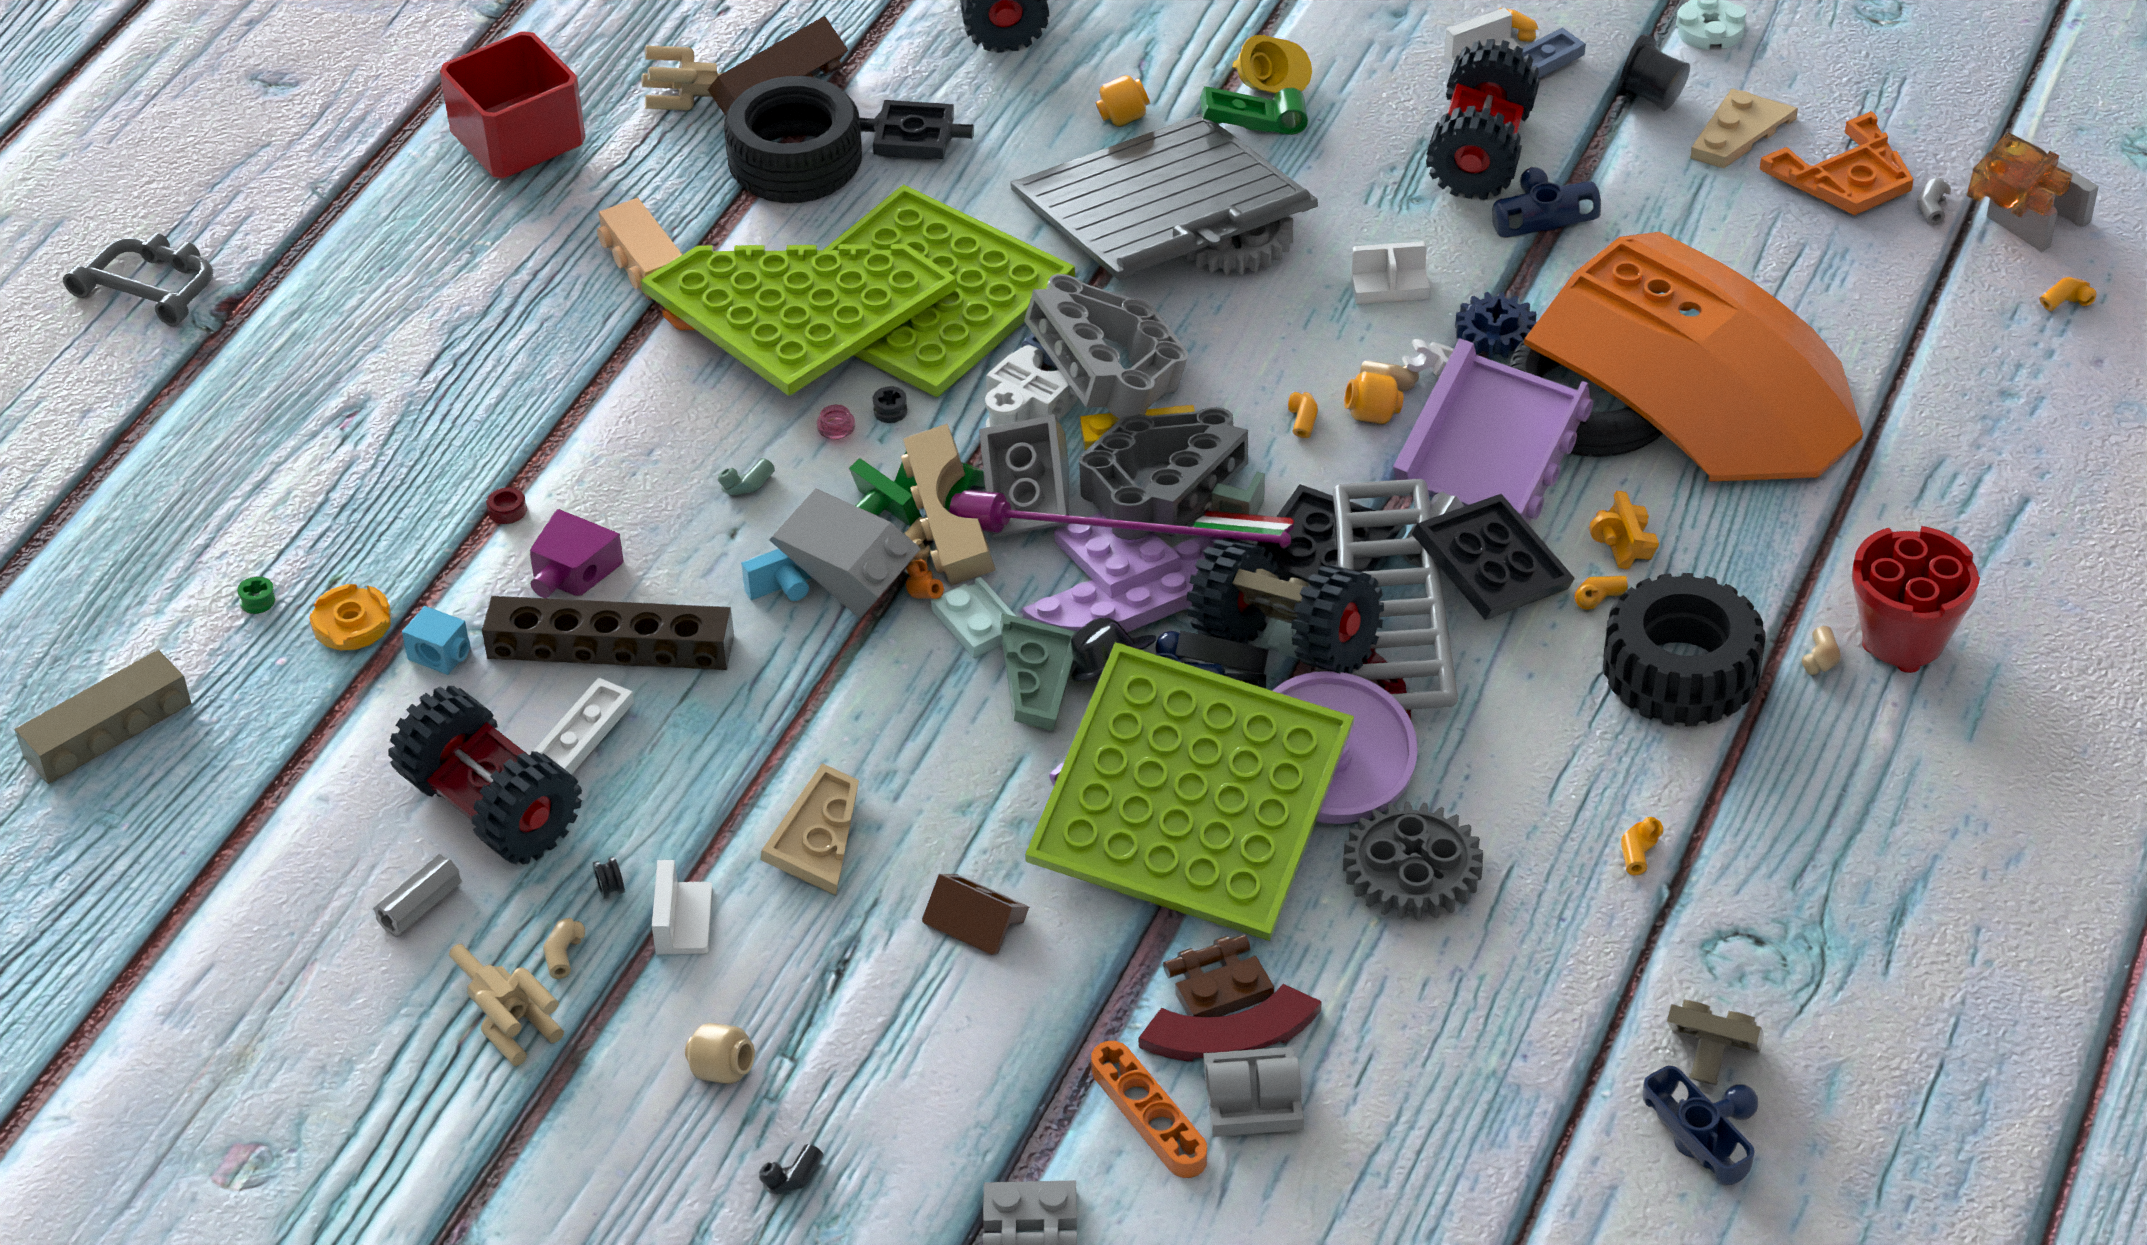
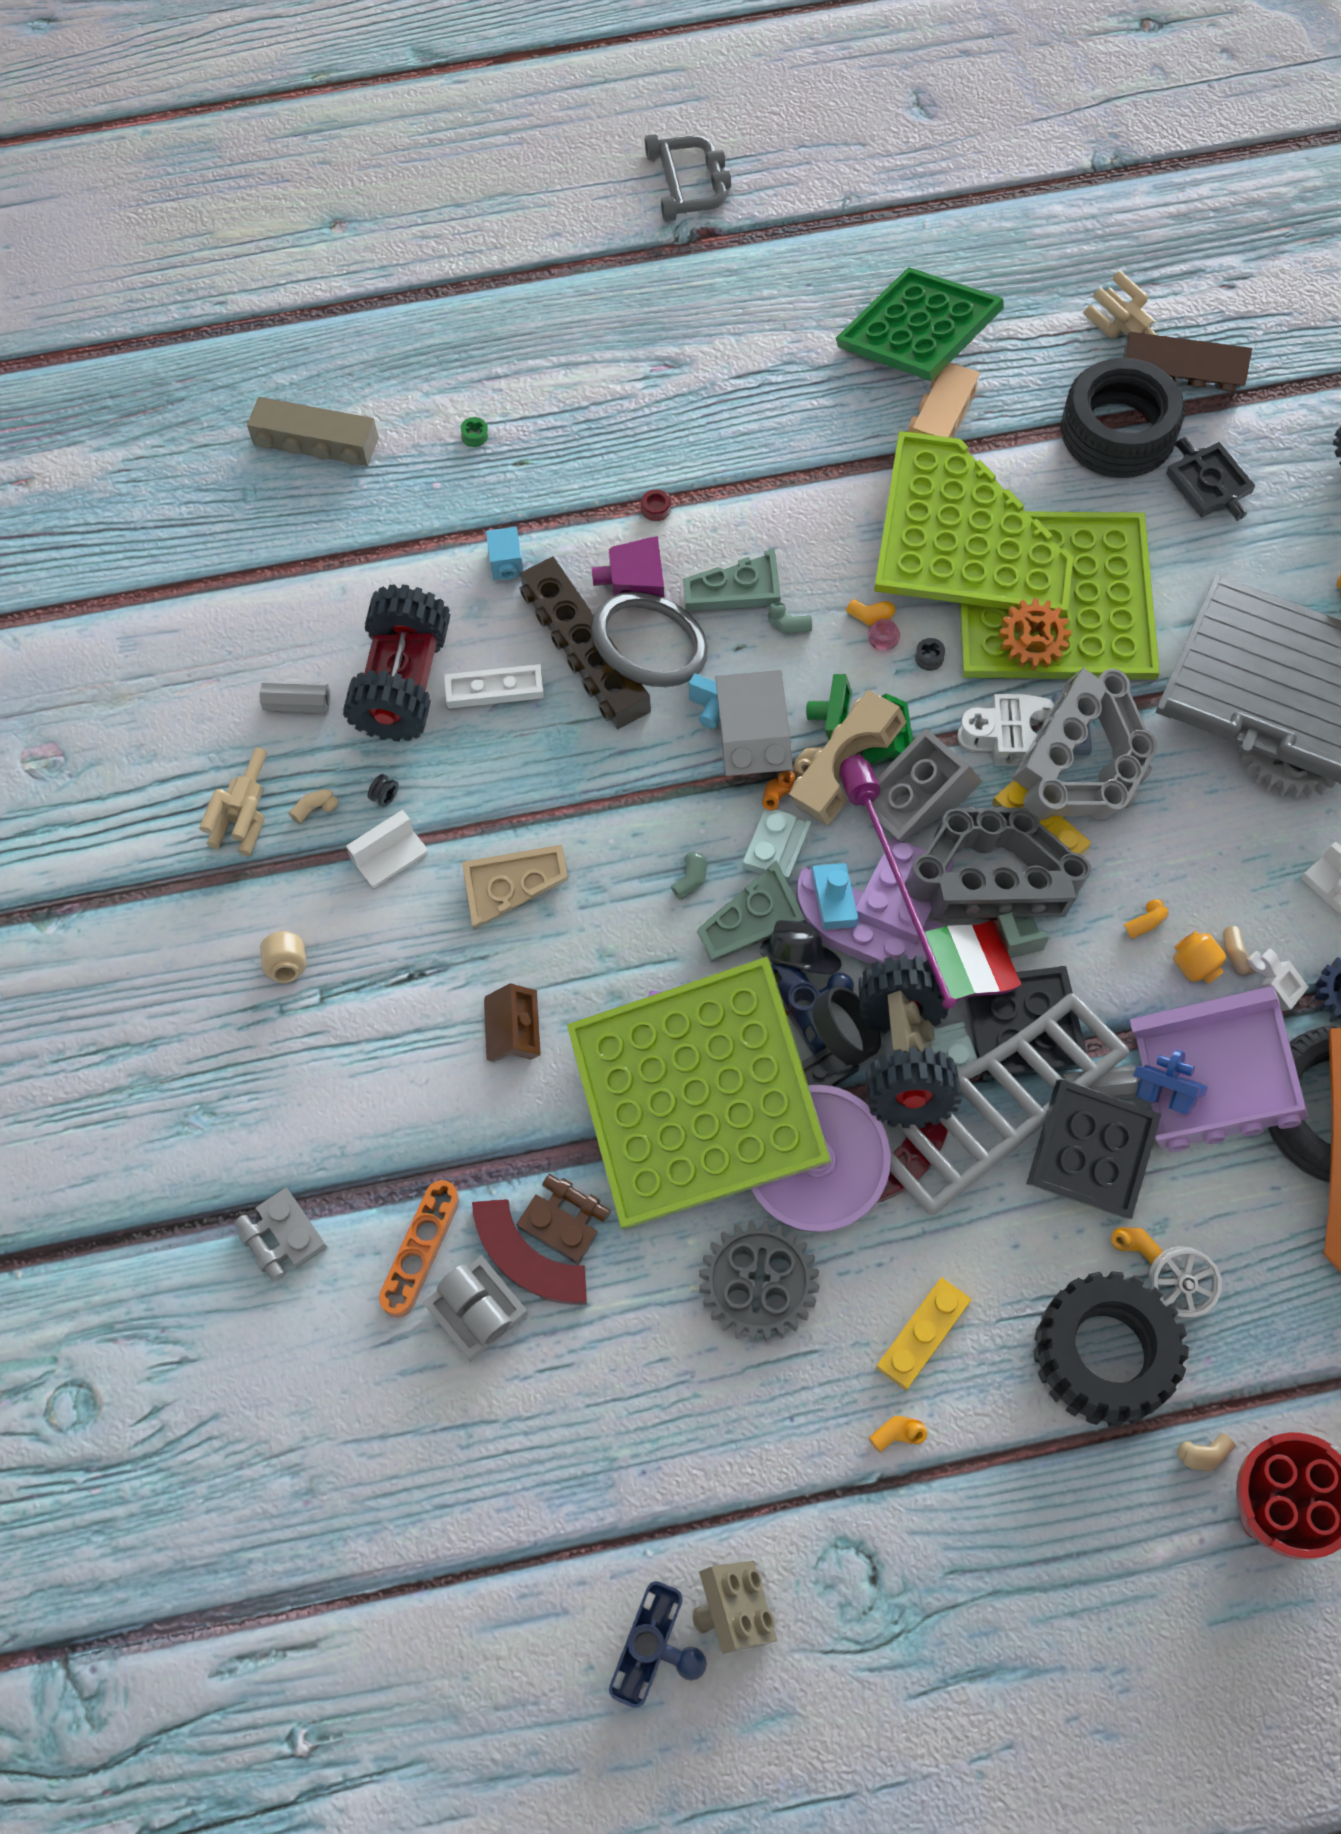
camera: 55 degrees right, 20 degrees up
(350, 617) = (491, 482): light orange plate -> none
(513, 104) = (993, 238): red plate -> none
(533, 207) = (920, 323): none -> green plate
(664, 603) = (633, 671): none -> dark grey wedge
(668, 493) = (740, 586): none -> sand green wing
(794, 1177) = (220, 1066): black arm -> none
(804, 419) = (871, 613): none -> light orange arm
(943, 683) = (695, 875): none -> sand green arm
(957, 311) = (1026, 623): none -> orange gear
(1080, 590) = (834, 896): none -> medium azure tile
(1494, 464) = (1154, 1079): none -> blue hips
(1560, 779) = (923, 1333): none -> yellow plate
(1623, 530) = (1207, 1218): light orange hips -> none
(1675, 557) = (1186, 1281): none -> white wheel

